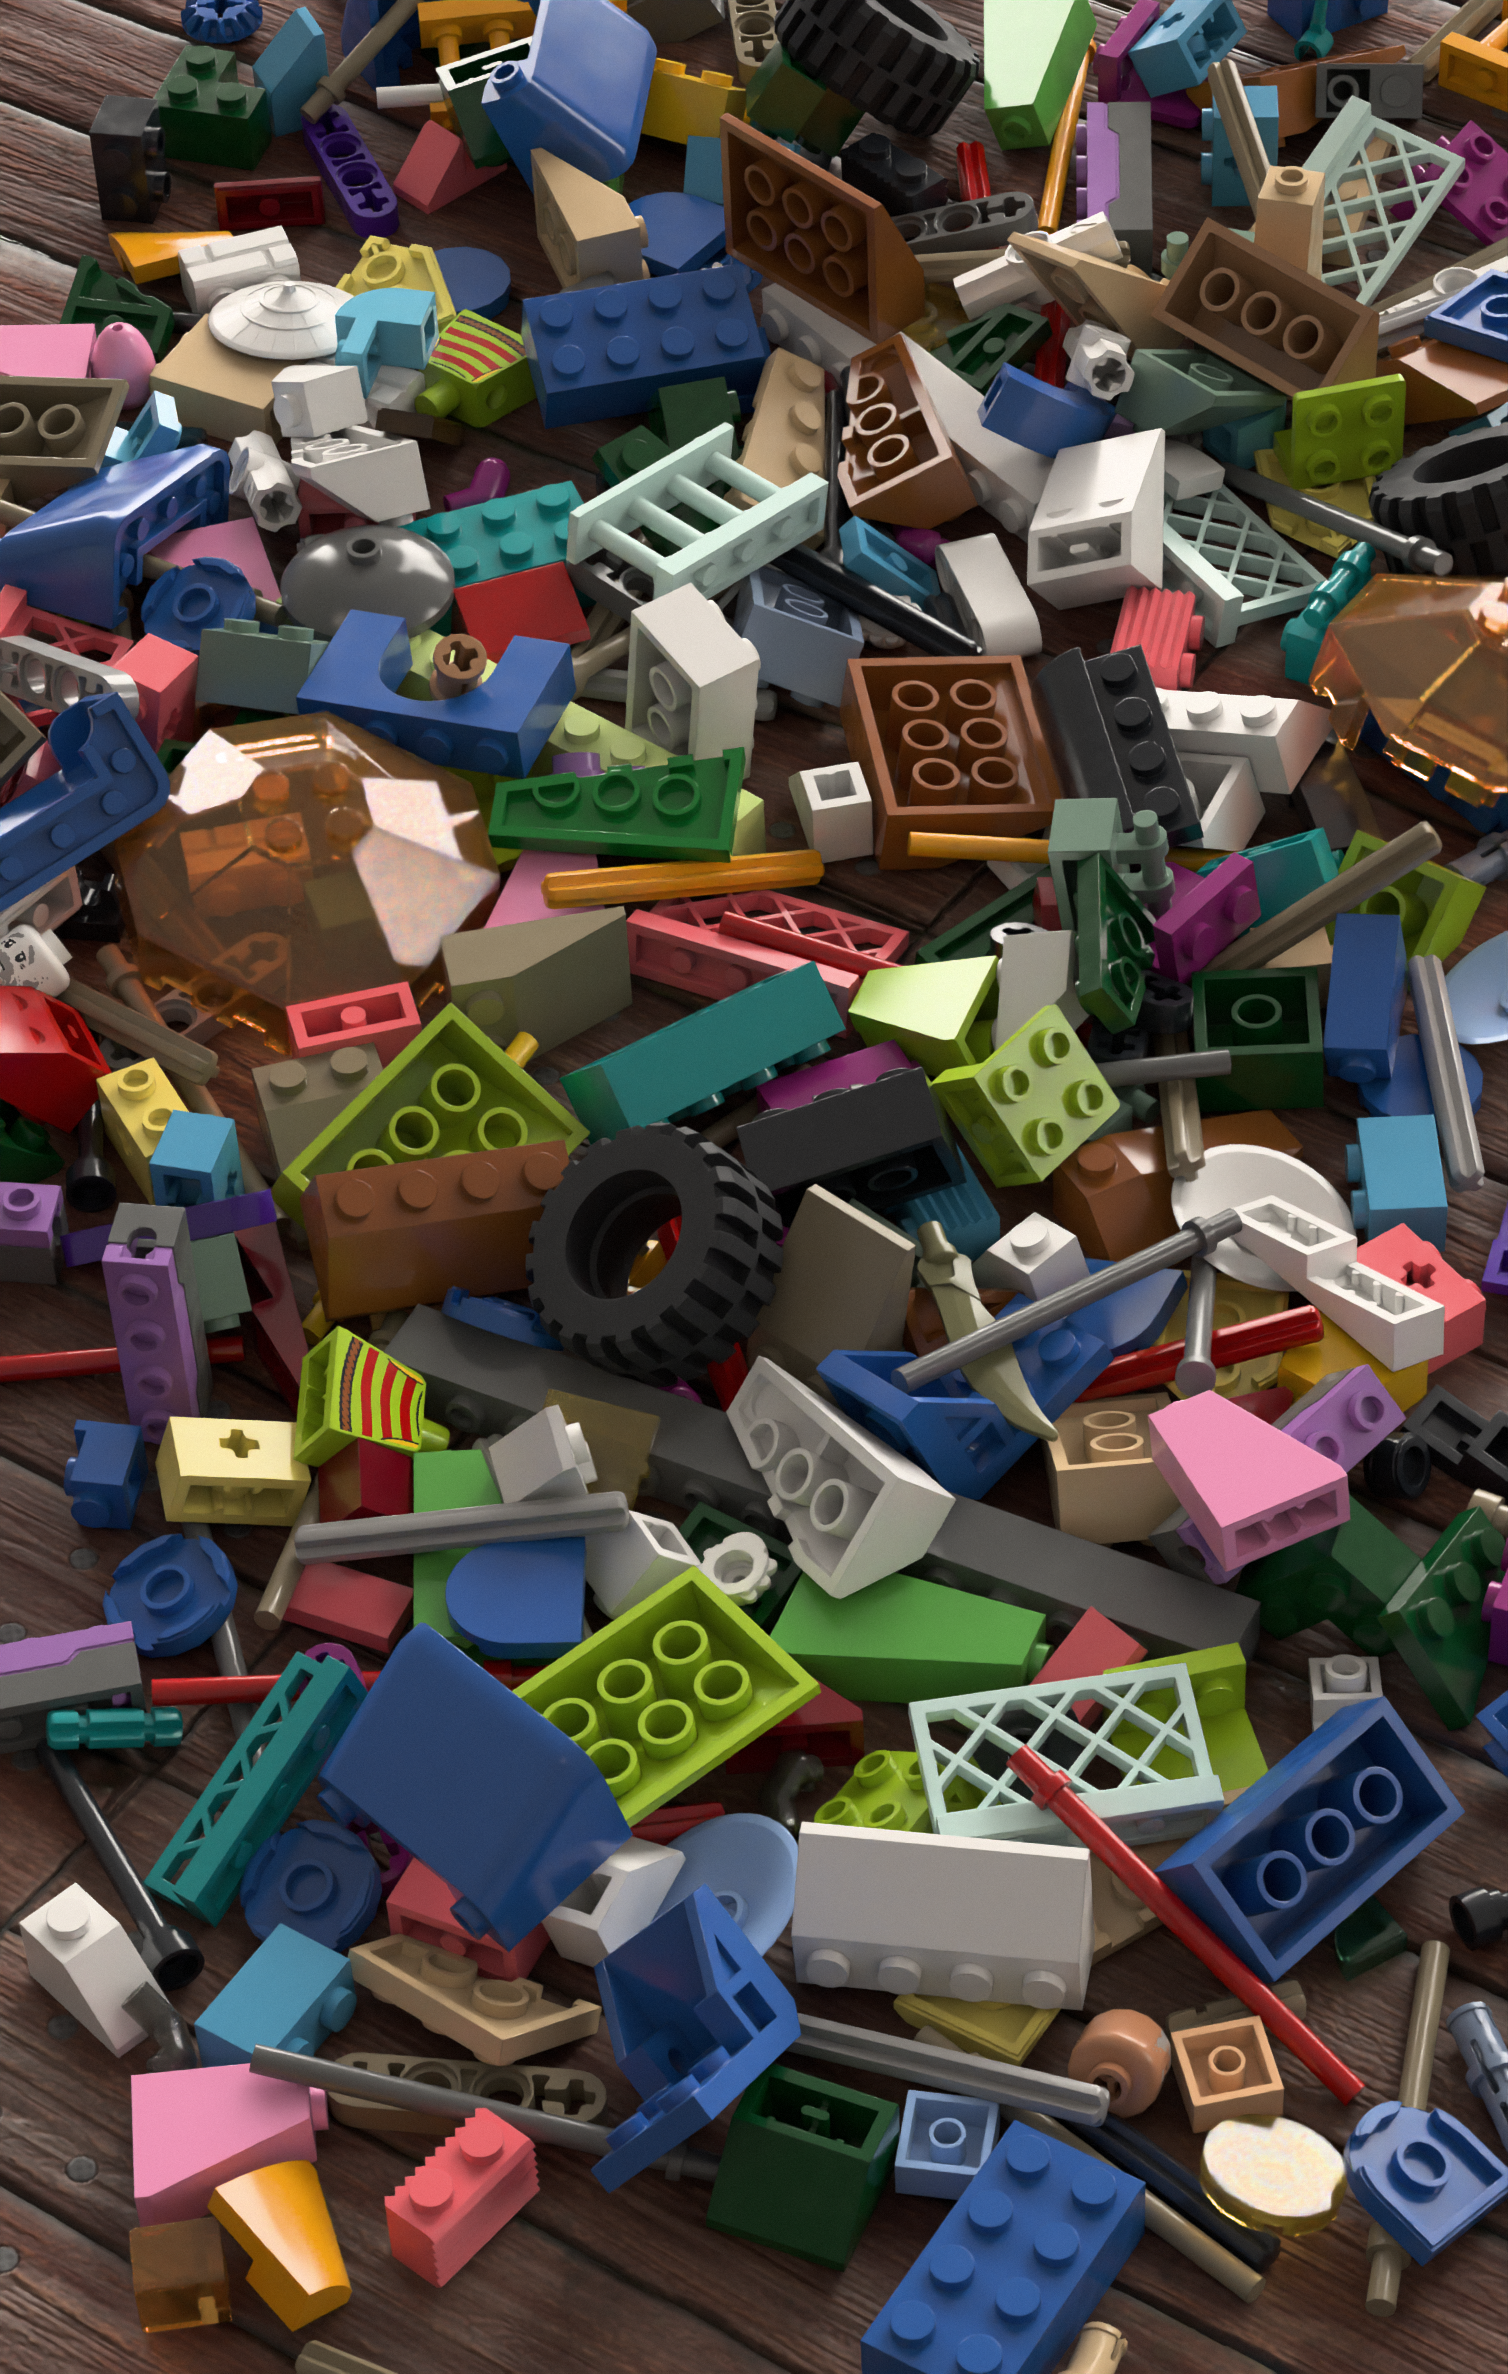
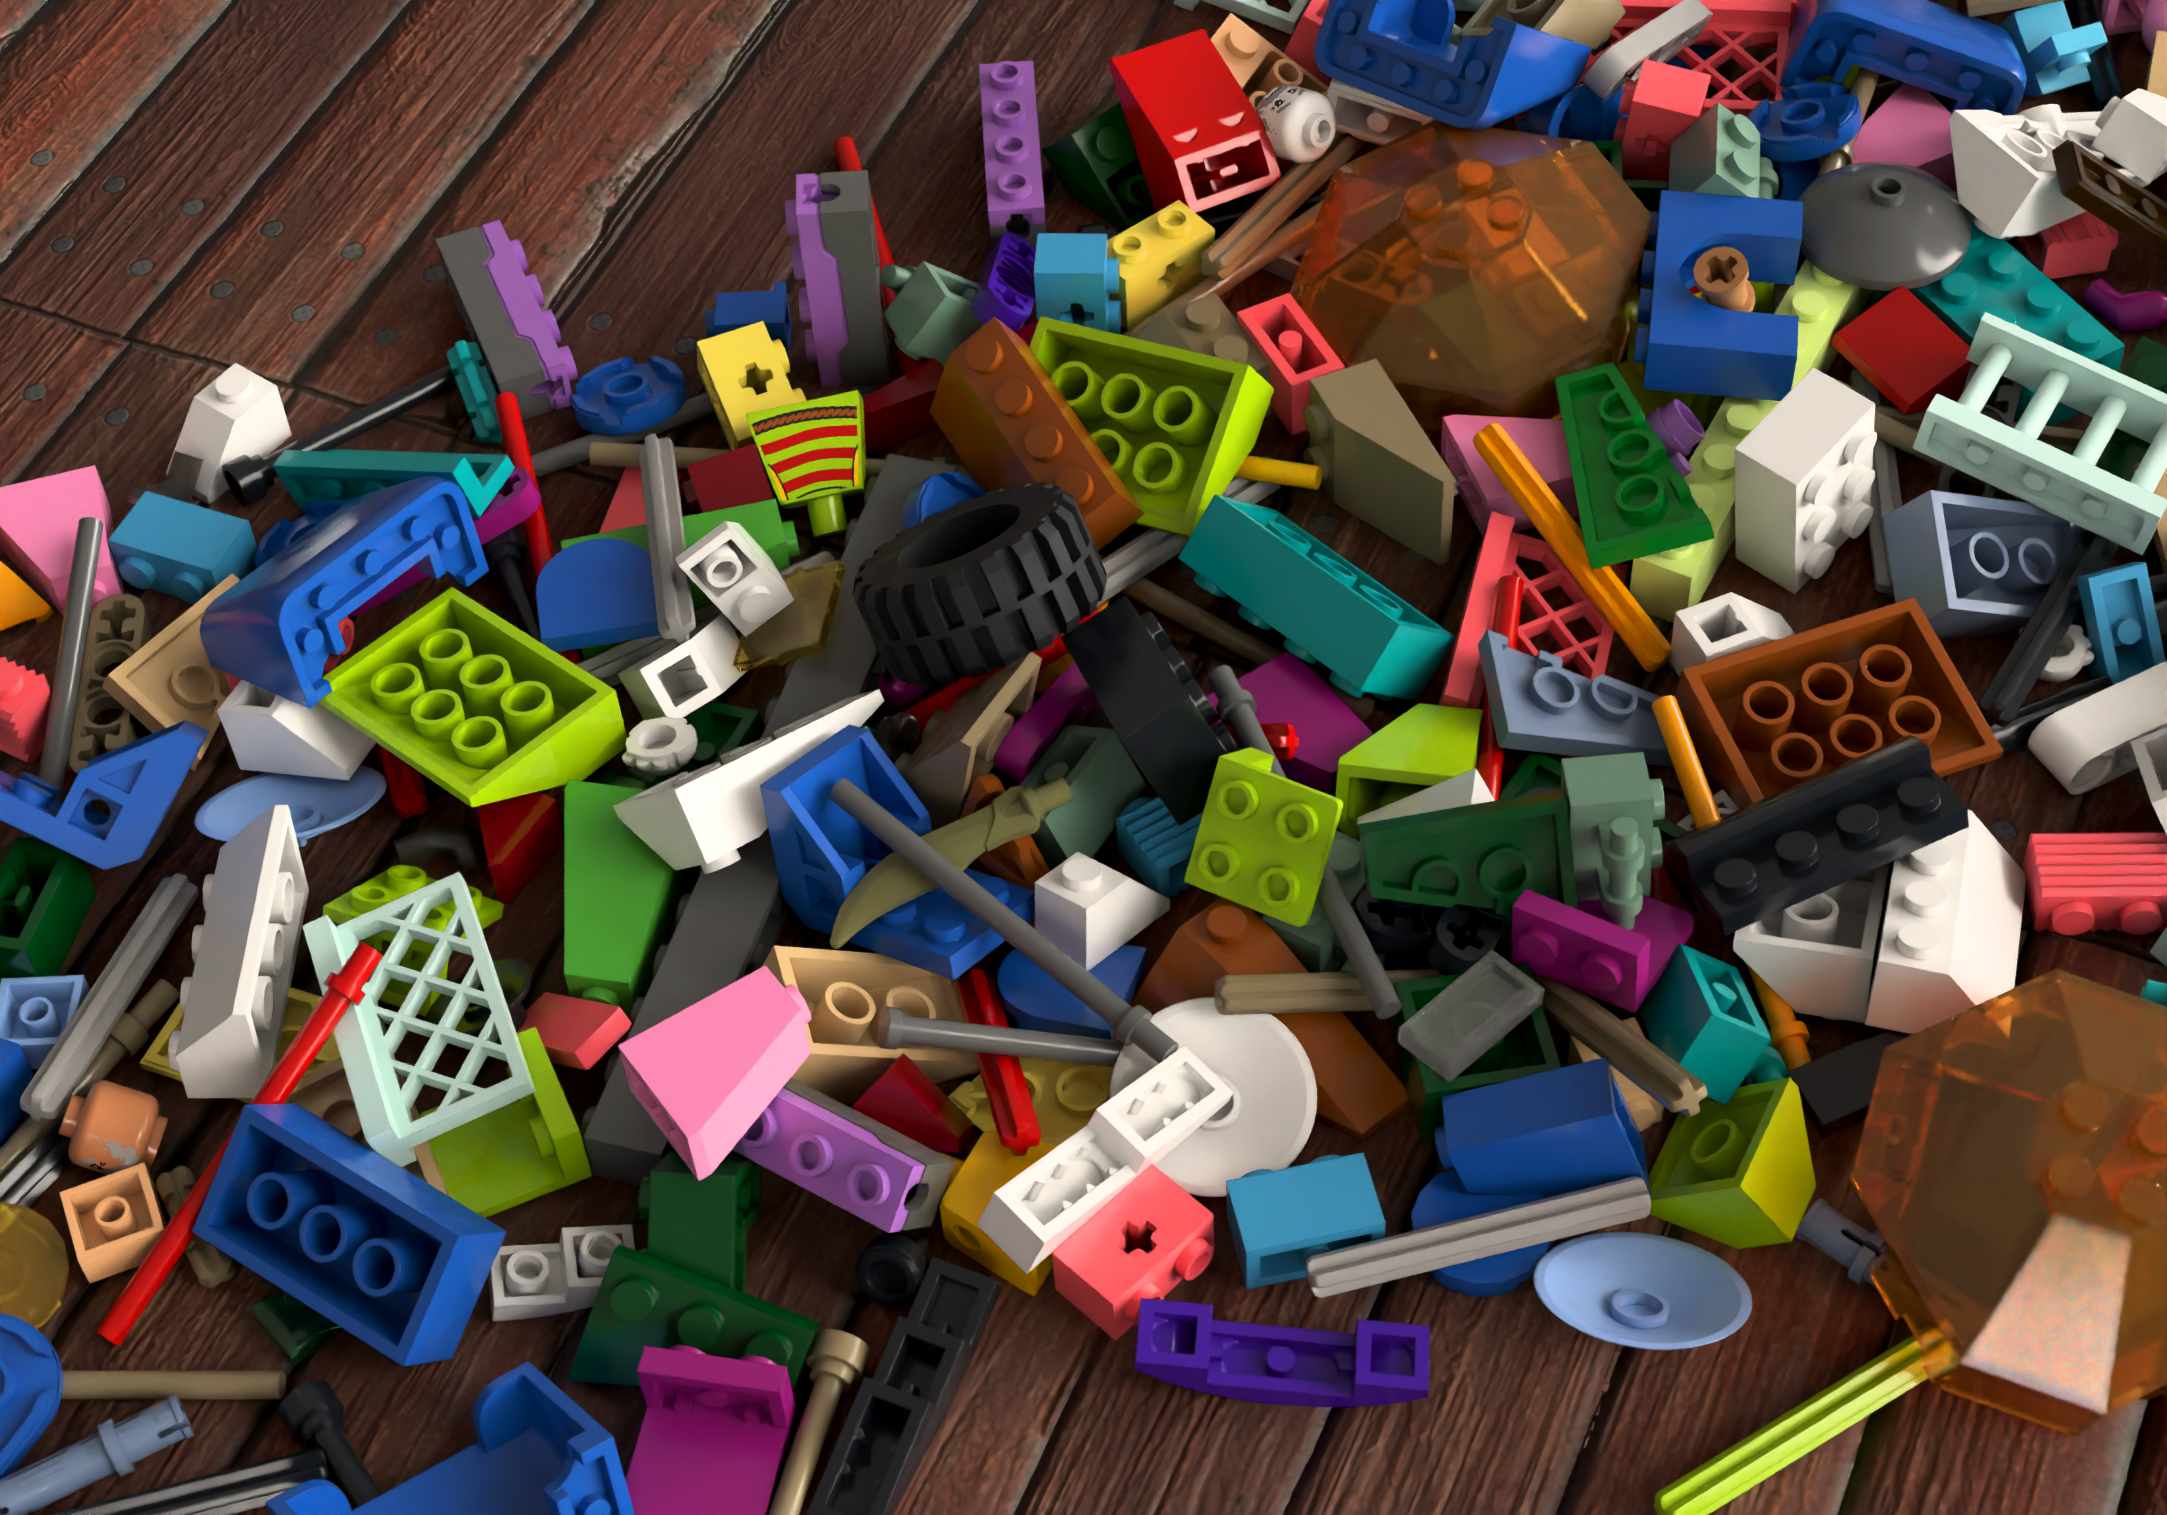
camera: 80 degrees right, 5 degrees up
(883, 917) = (1564, 713): none -> sand blue wing
(1251, 1007) = (1470, 1015): none -> clear tile

